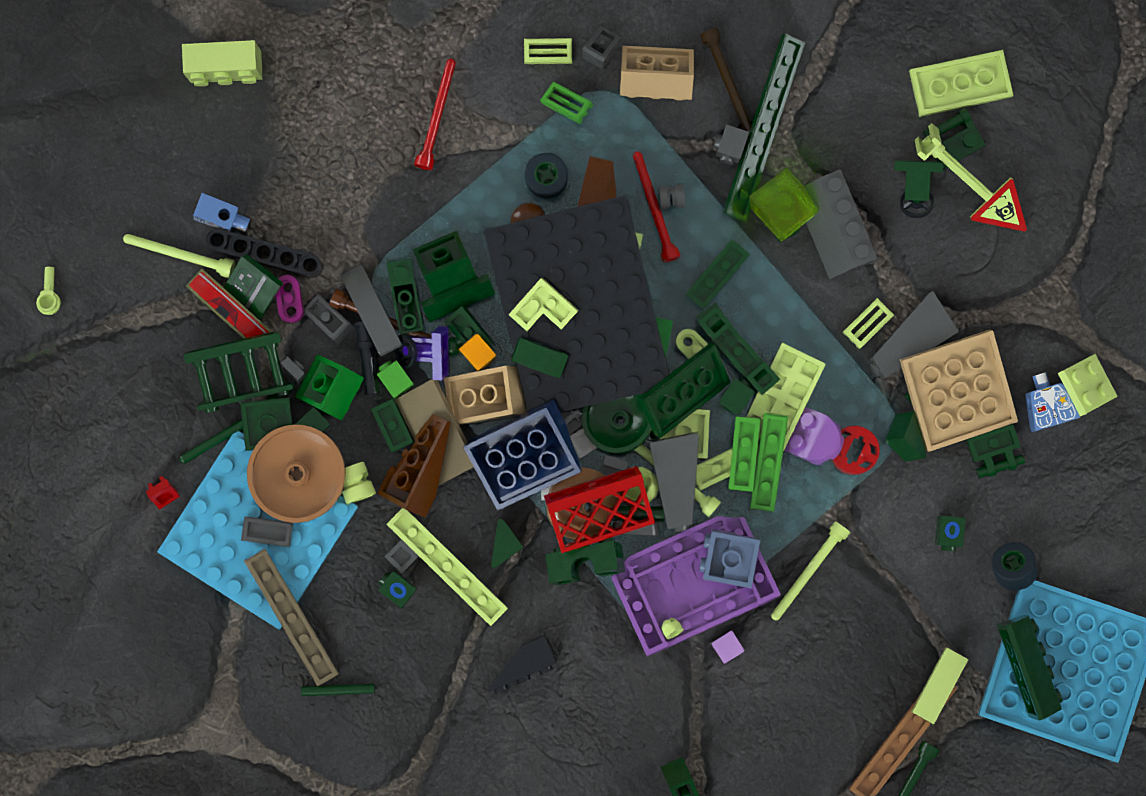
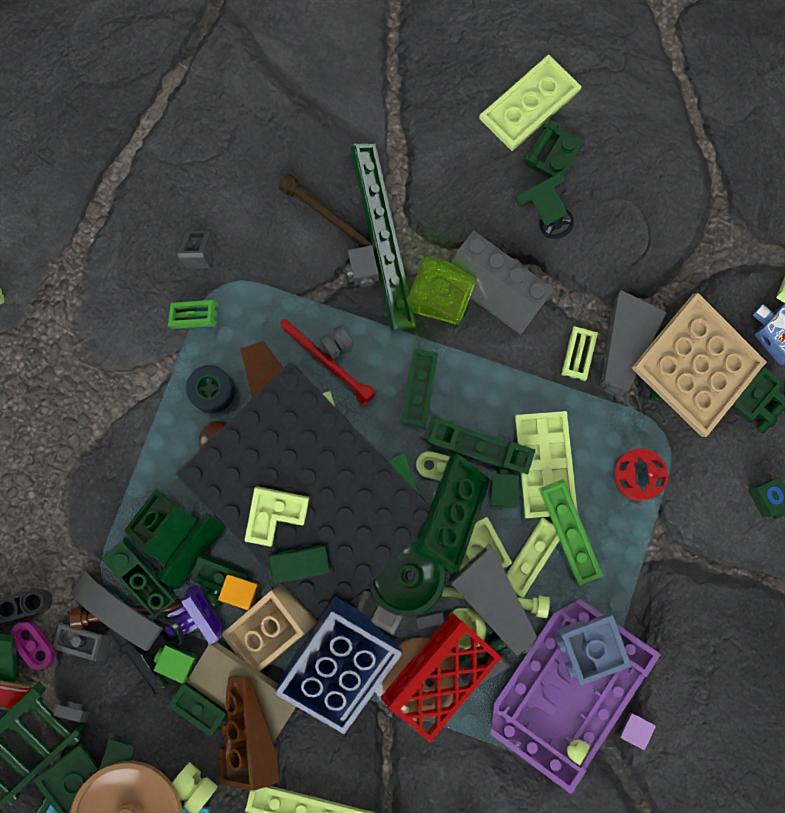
camera: 25 degrees left, 5 degrees down
(329, 387) = (117, 709): green slope -> none
(425, 157) = (91, 438): red piece -> none
(505, 544) = (370, 759): dark green slope -> none
(548, 60) = (152, 279): yellowish green tile -> none
(605, 556) = (474, 720): dark green arch -> none
(657, 72) = (260, 242): tan slope -> none
(744, 453) = (544, 539): bright green plate -> none
(815, 438) = (600, 484): medium lavender slope -> none
(836, 534) = (671, 562): yellowish green piece -> none
(906, 437) = (678, 434): dark green slope -> none
(999, 208) = (631, 185): yellowish green piece -> none

